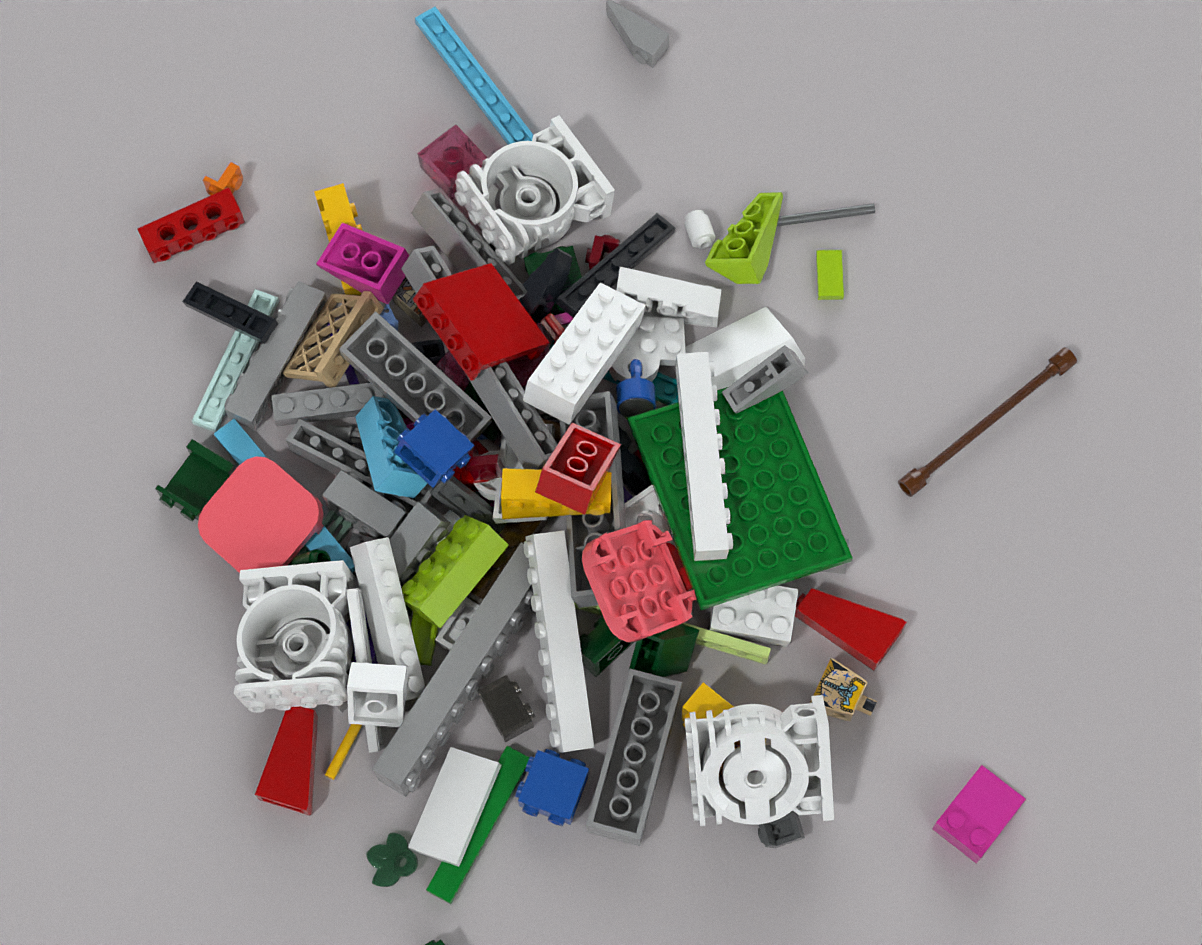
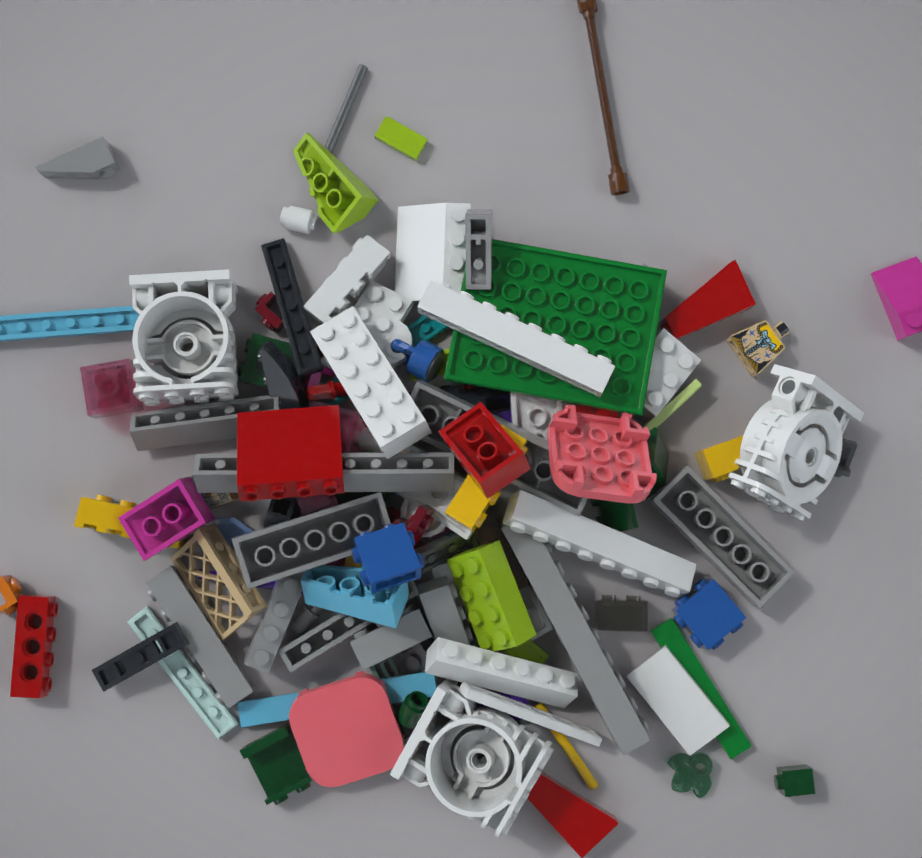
camera: 65 degrees left, 15 degrees up
(376, 694) = (563, 717): white slope -> none

